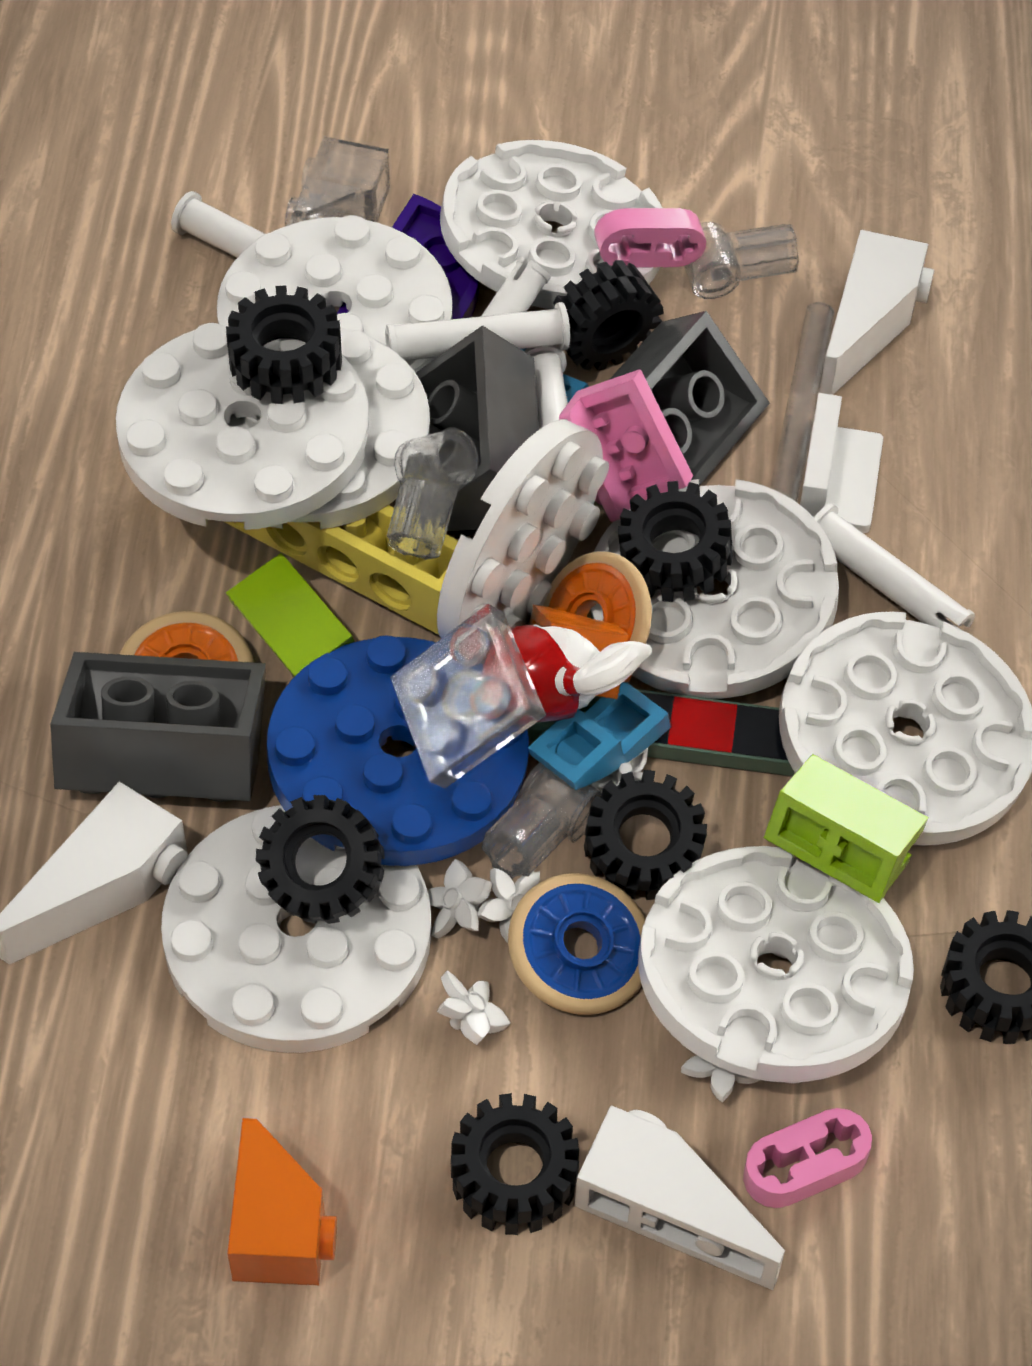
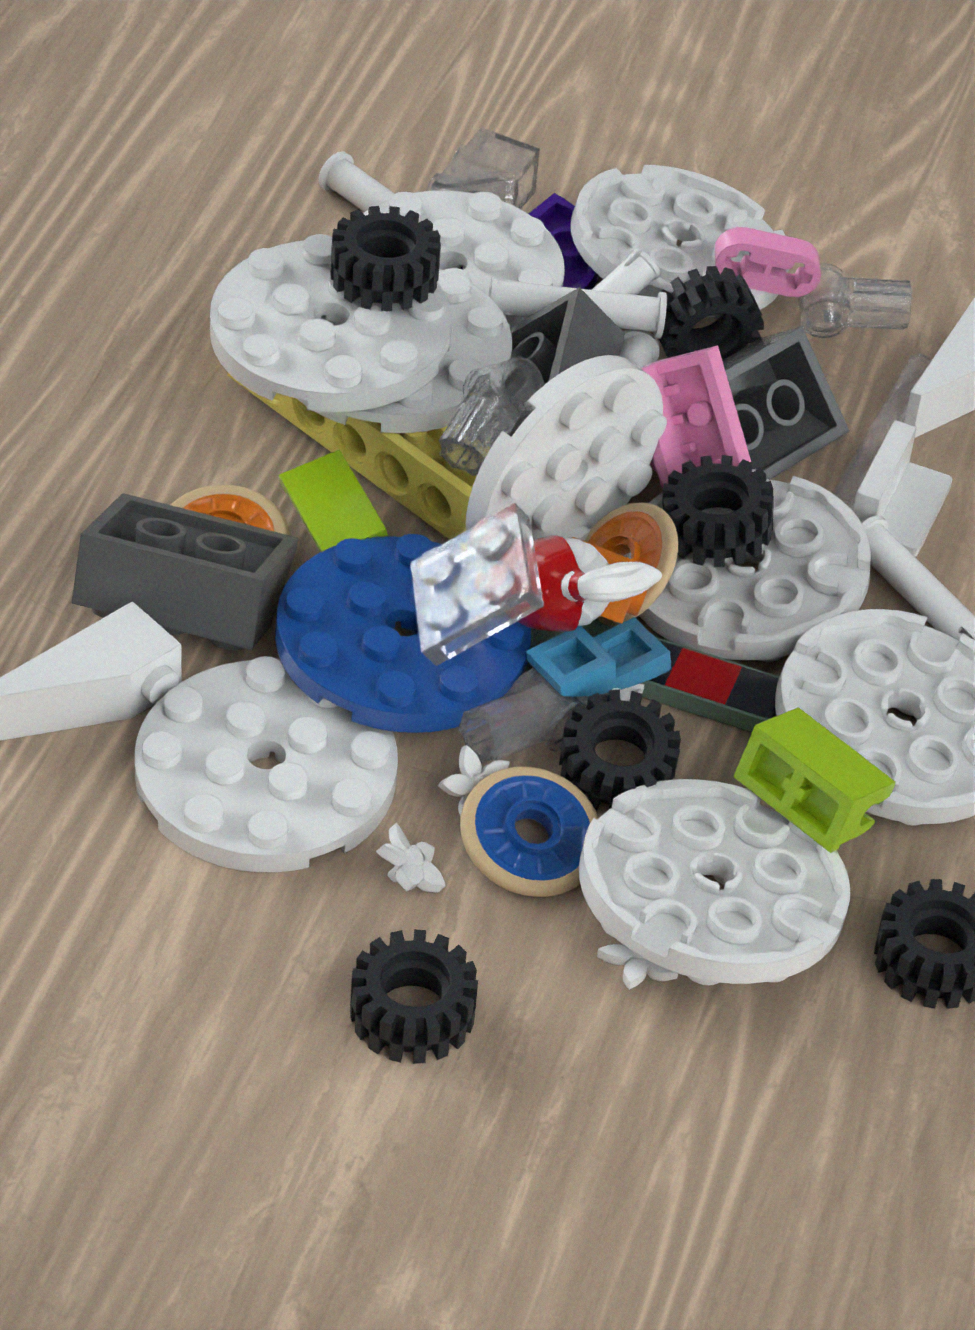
camera: 10 degrees right, 10 degrees down
(276, 1215) = (173, 988): orange slope -> none
(287, 835) = (293, 661): black tyre -> none
(458, 899) = (425, 771): white plant -> none
(663, 1190) = (550, 1047): white slope -> none
(813, 1172) = (699, 1054): bright pink beam -> none

